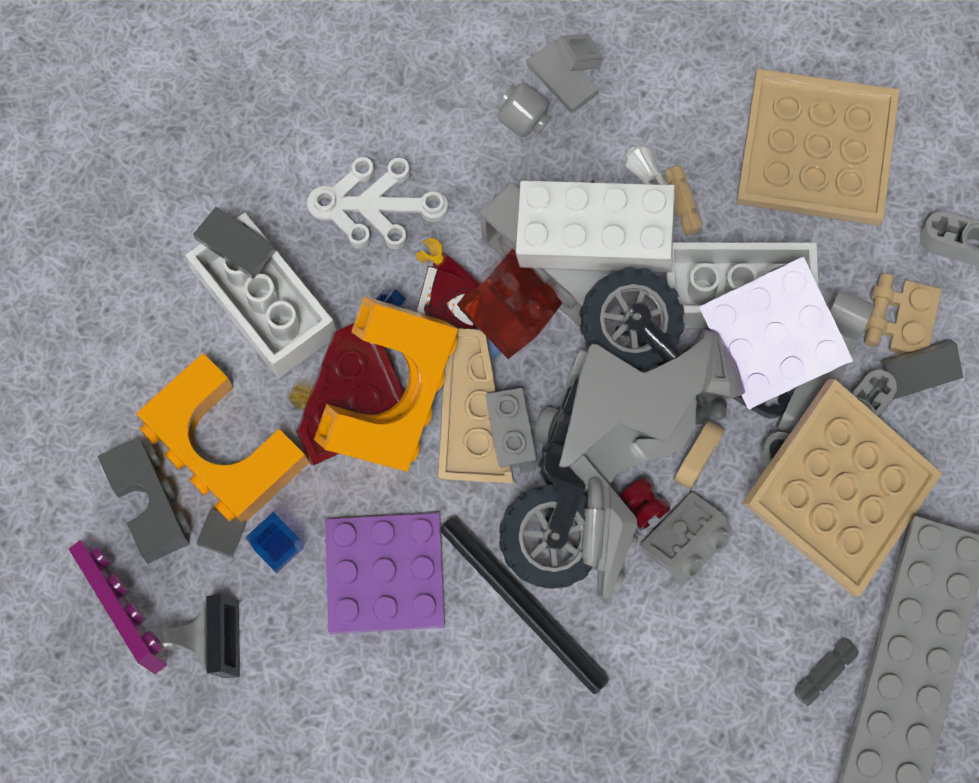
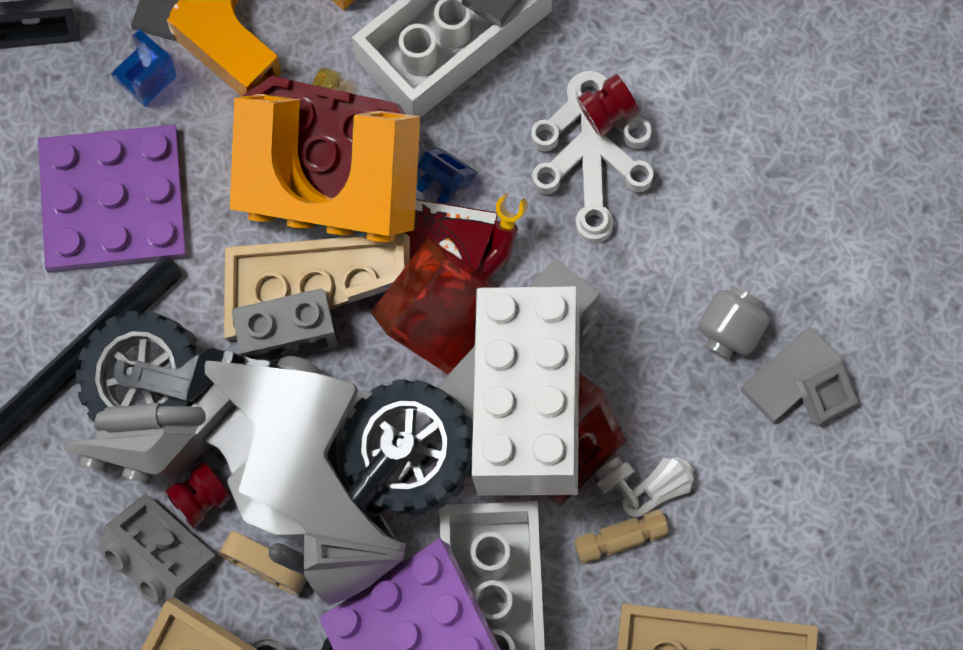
camera: 85 degrees right, 0 degrees up
(344, 182) = (608, 105): none -> dark red wheel

